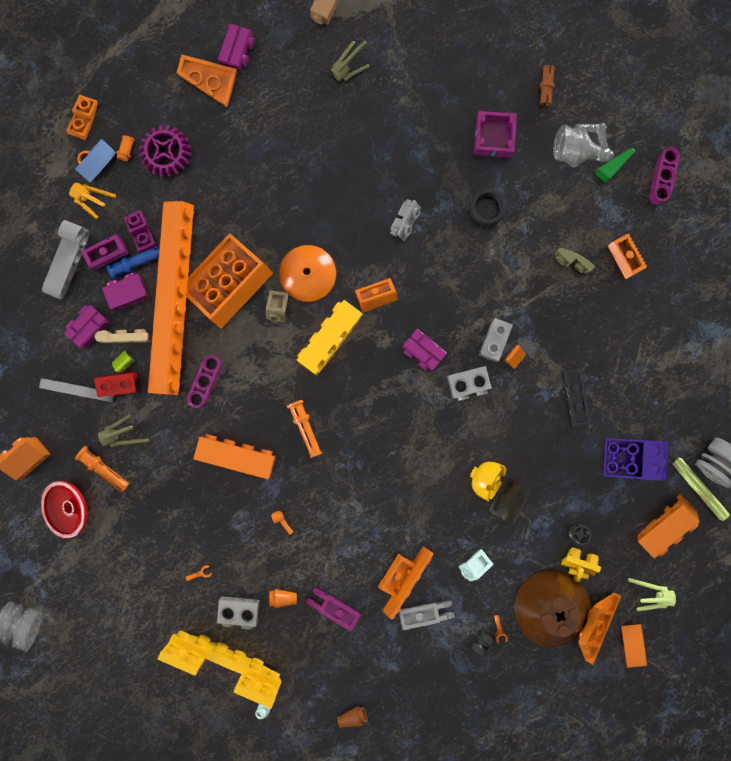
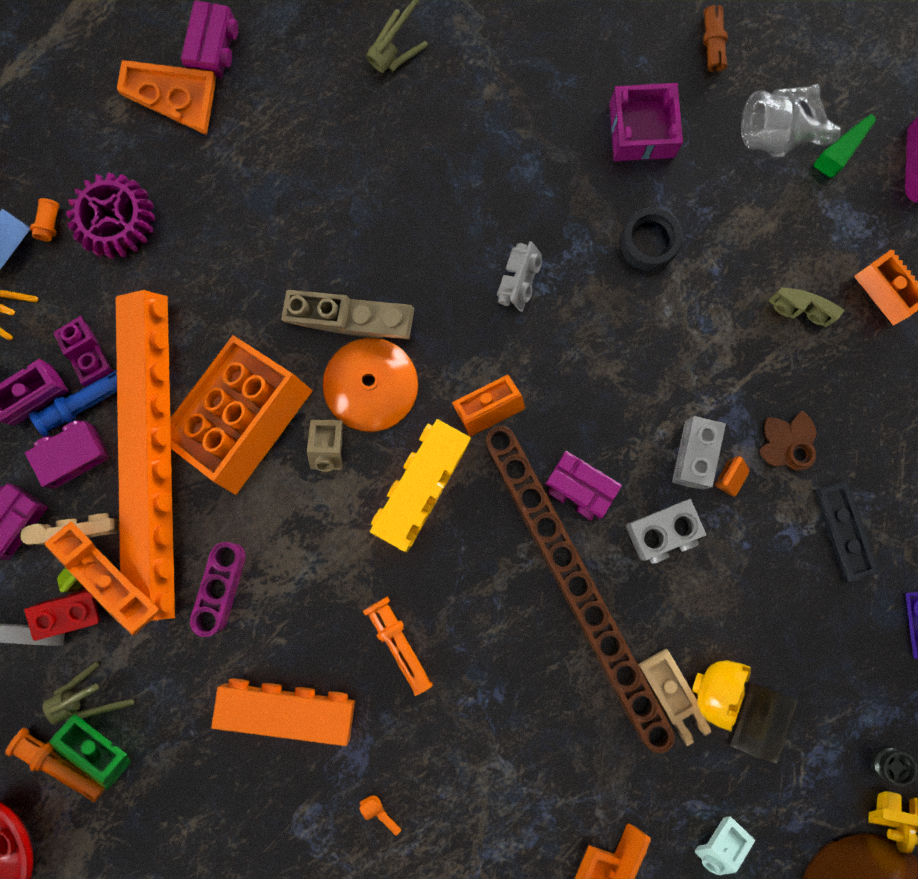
camera: 15 degrees left, 5 degrees down
(123, 463) = (90, 751): none -> green brick
(140, 367) = (101, 578): none -> orange slope
(299, 230) = (347, 315): none -> dark tan slope
(425, 454) = (606, 626): none -> reddish brown beam
(459, 476) = (673, 693): none -> tan hinge
(550, 338) = (786, 438): none -> reddish brown plate

